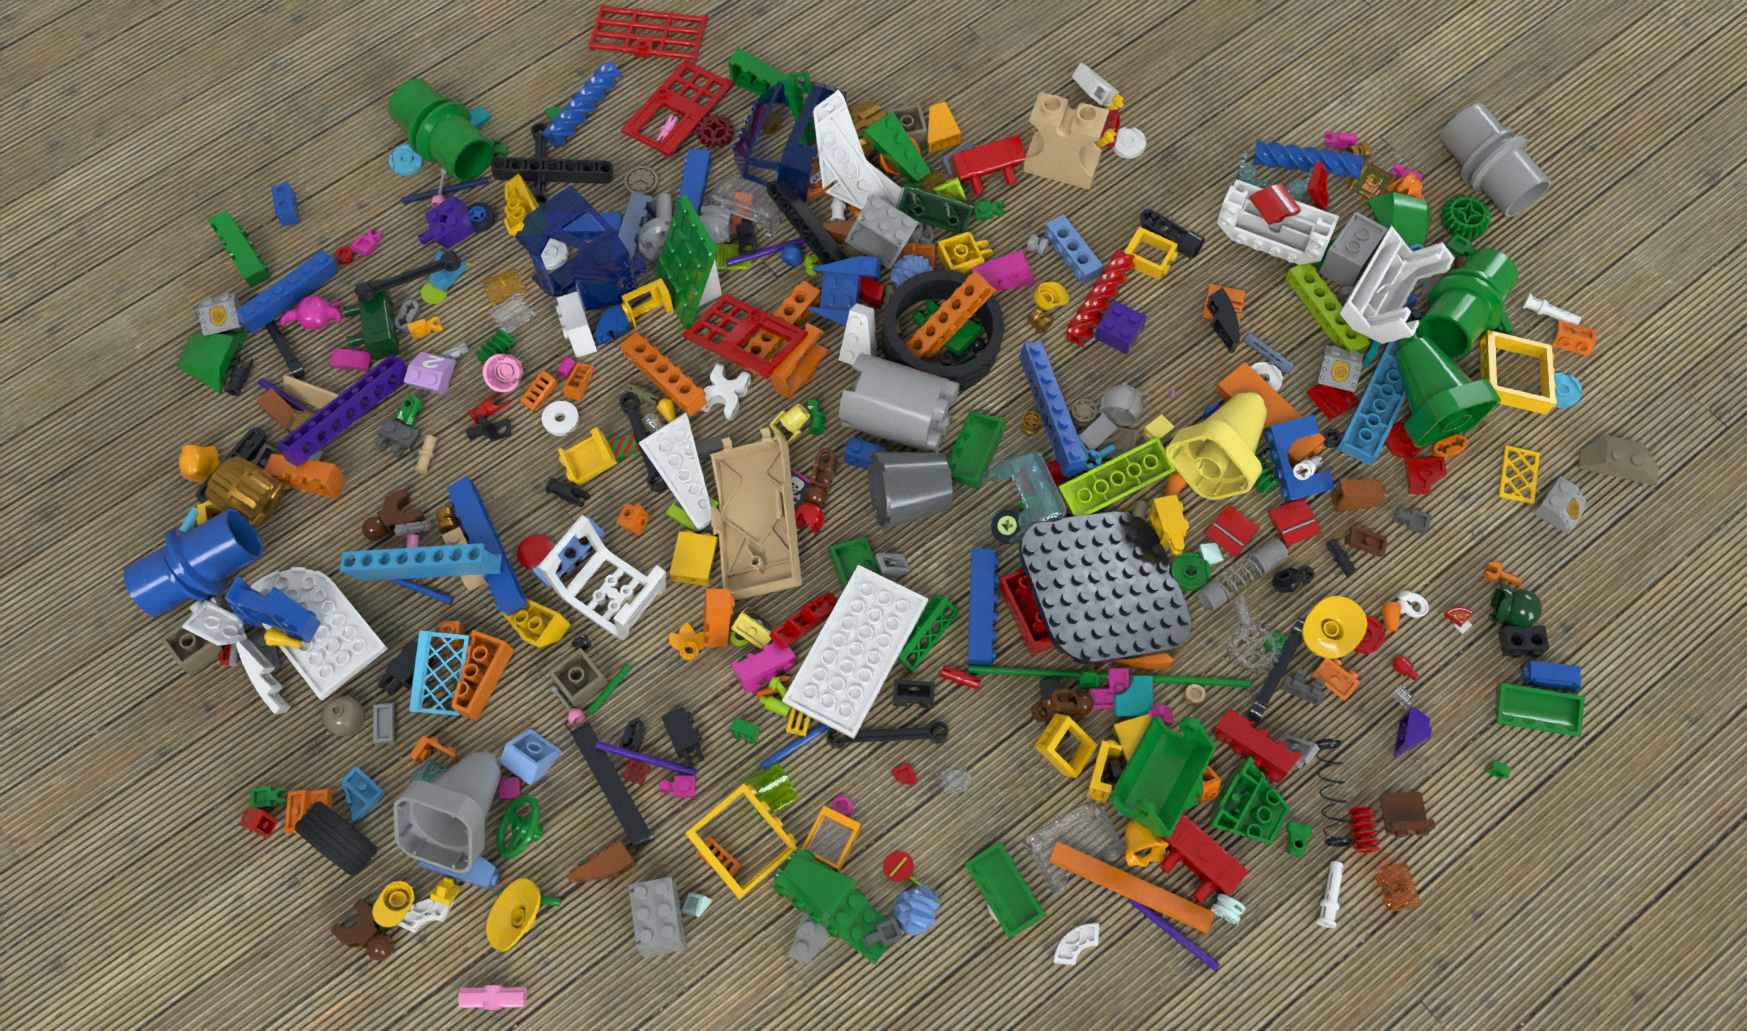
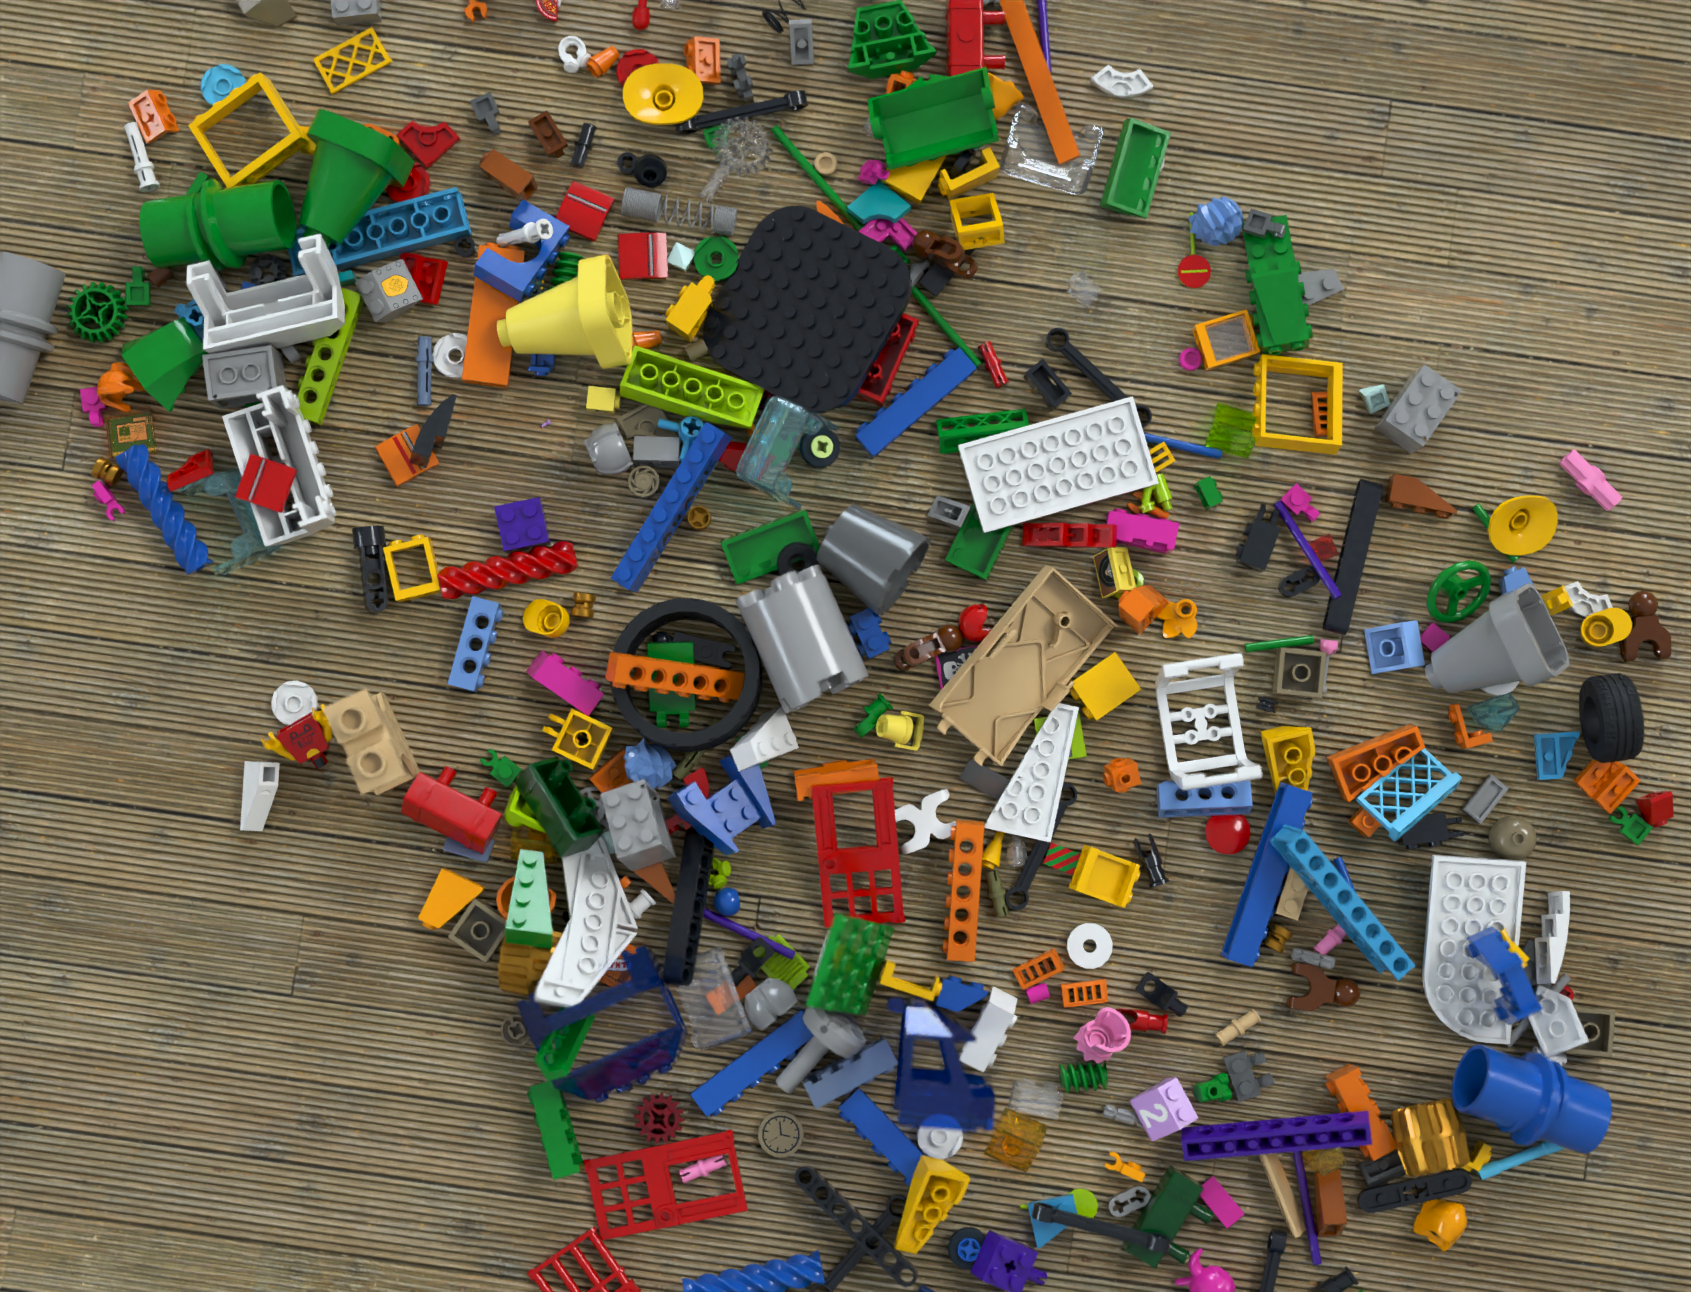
camera: 145 degrees left, 20 degrees up
(804, 292) = (756, 838): orange brick -> none
(904, 774) = (1116, 335): red tile -> none
(958, 454) = (792, 551): none -> black tyre
(1037, 244) = (500, 687): light grey wheel -> none
(1066, 680) = (916, 271): none -> light grey bar
(1246, 741) = (829, 75): red wedge -> none

